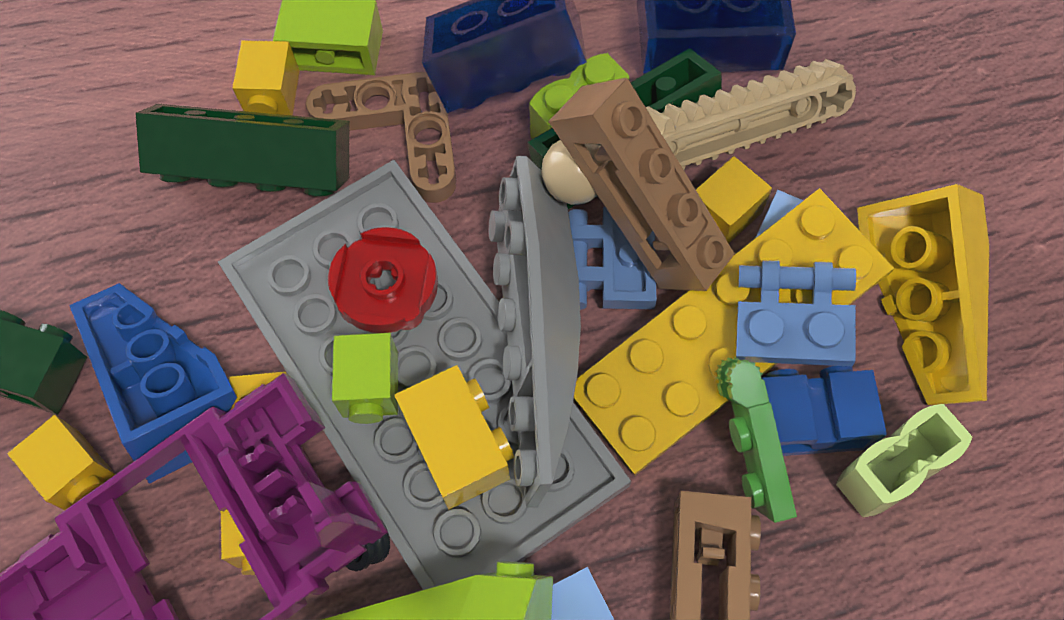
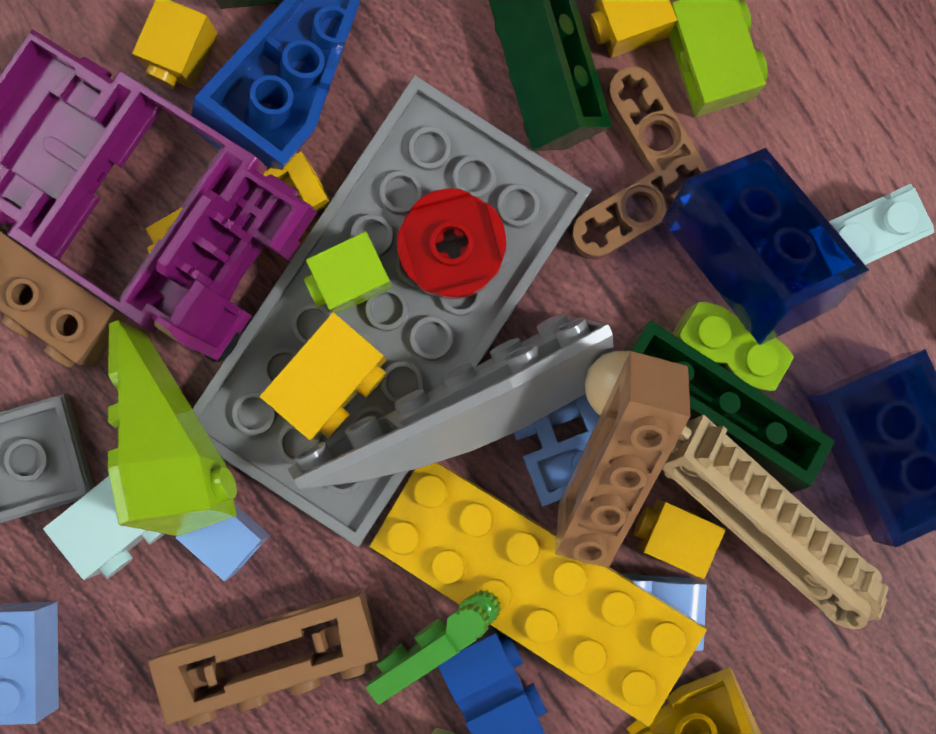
camera: 65 degrees right, 20 degrees up
(797, 331) = (543, 654): medium blue plate -> none

